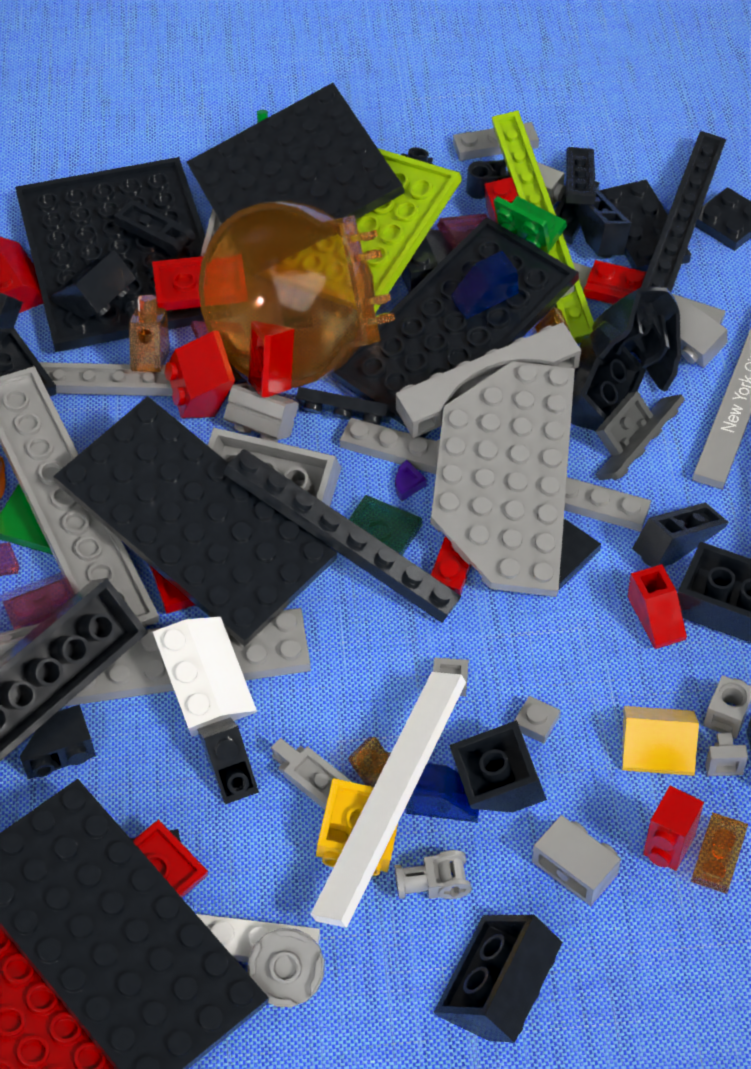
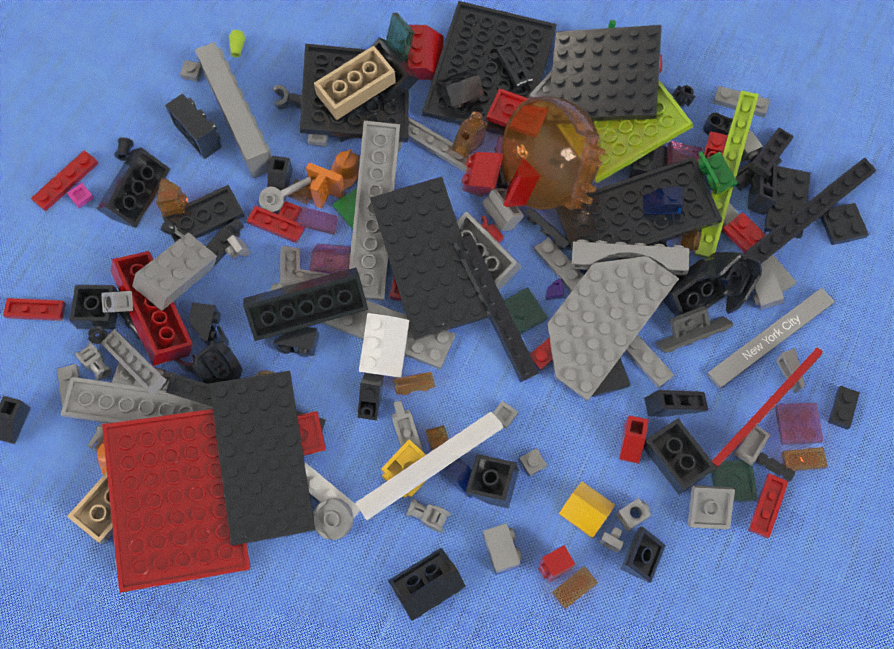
camera: 30 degrees right, 15 degrees up
(293, 699) = (414, 383): none -> clear orange plate

